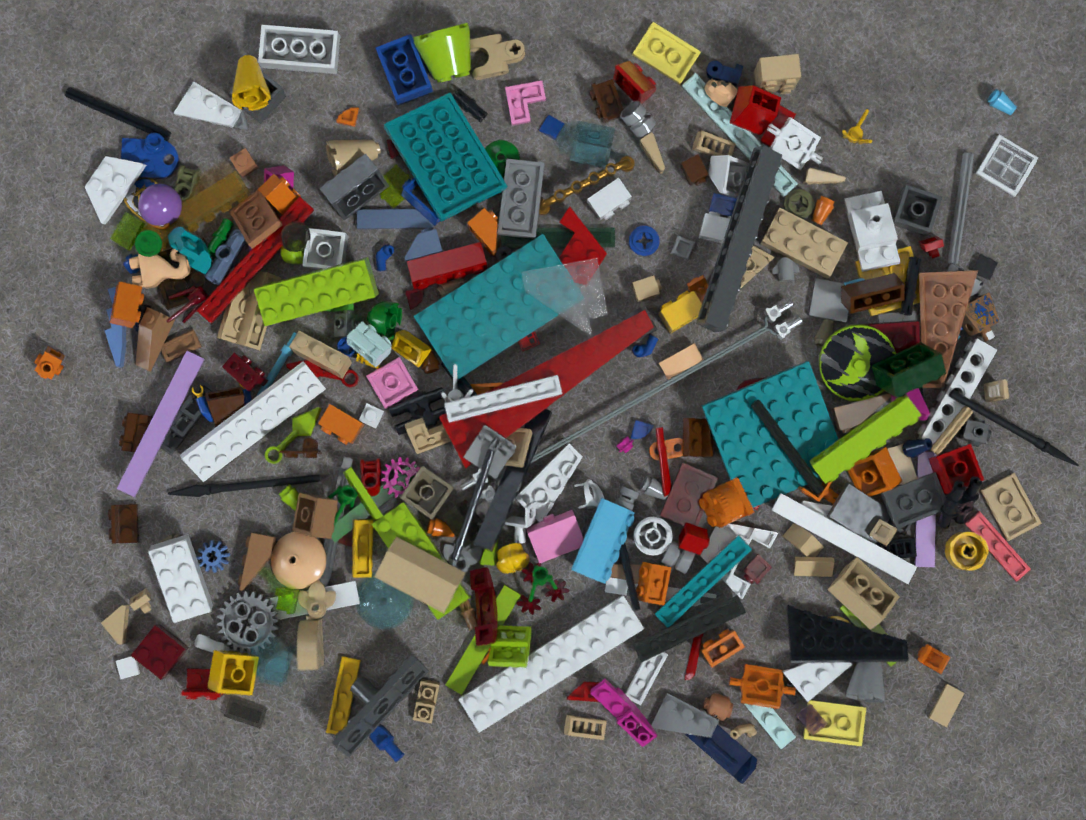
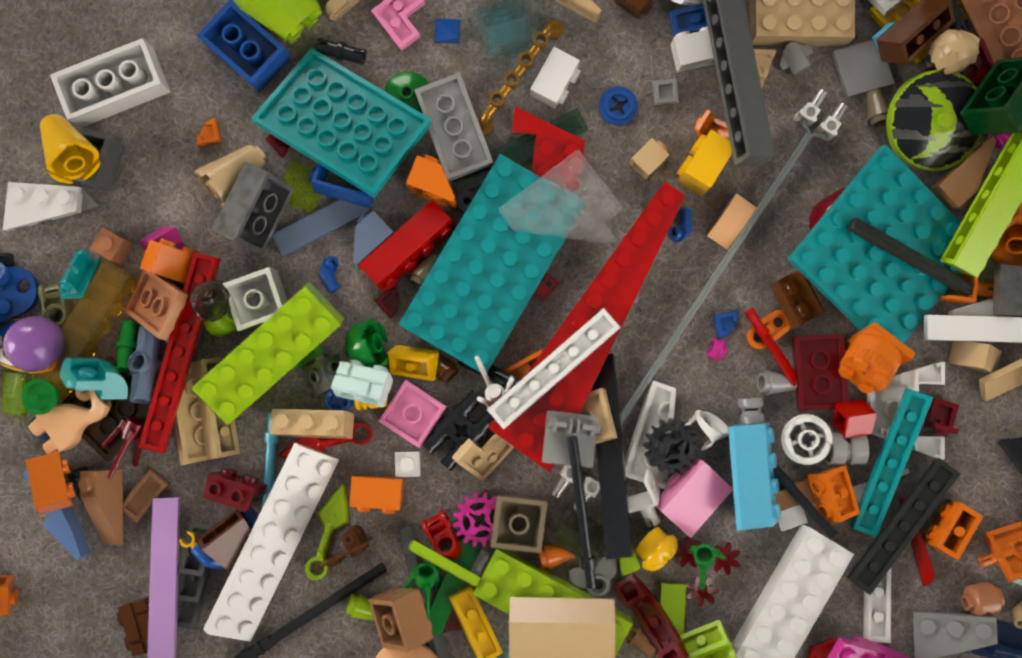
camera: 25 degrees left, 0 degrees up
(212, 173) = (76, 282): none -> teal hinge
(550, 495) = (679, 437): none -> black gear
(889, 320) = (954, 51): none -> tan hair

